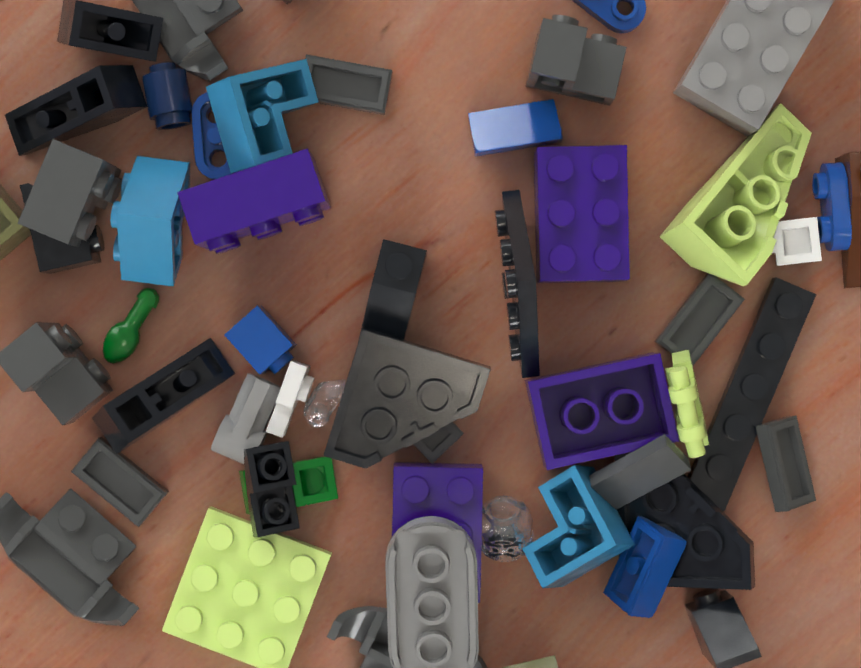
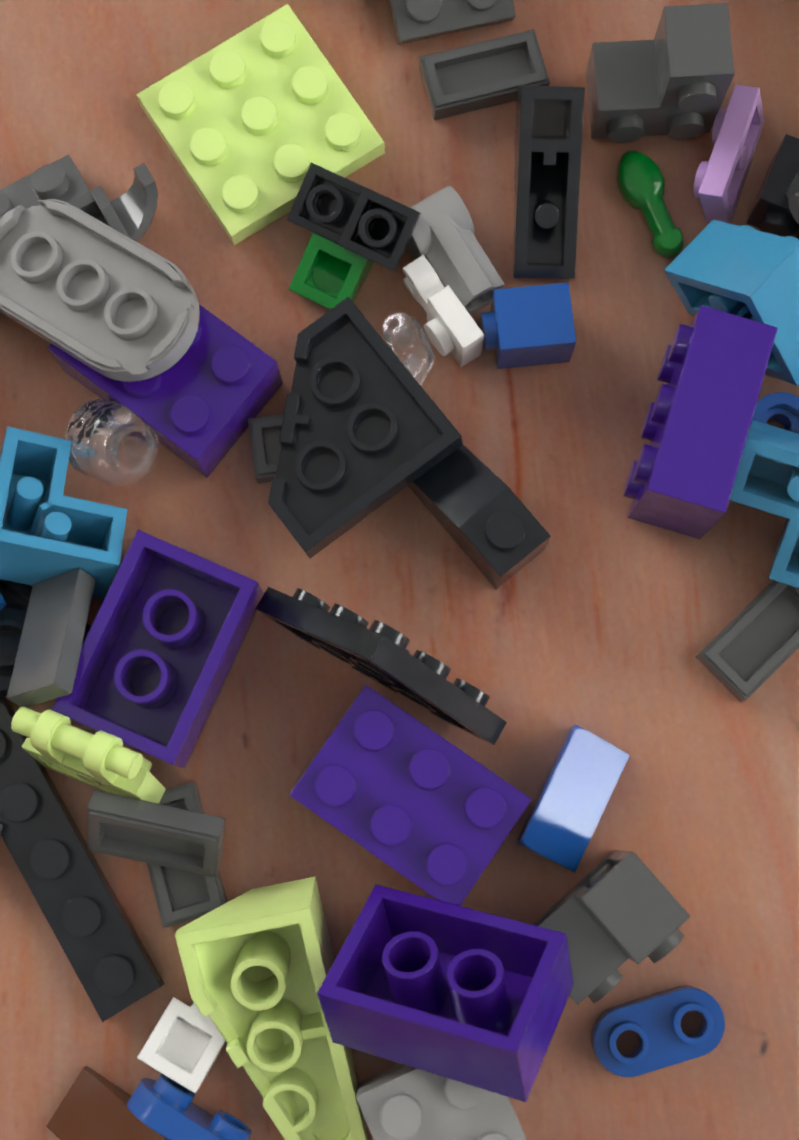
camera: 130 degrees right, 10 degrees down
(56, 302) = (735, 141): none -> lavender plate
(670, 119) = (448, 990): none -> dark purple brick
(701, 337) = (155, 833): none -> dark grey tile

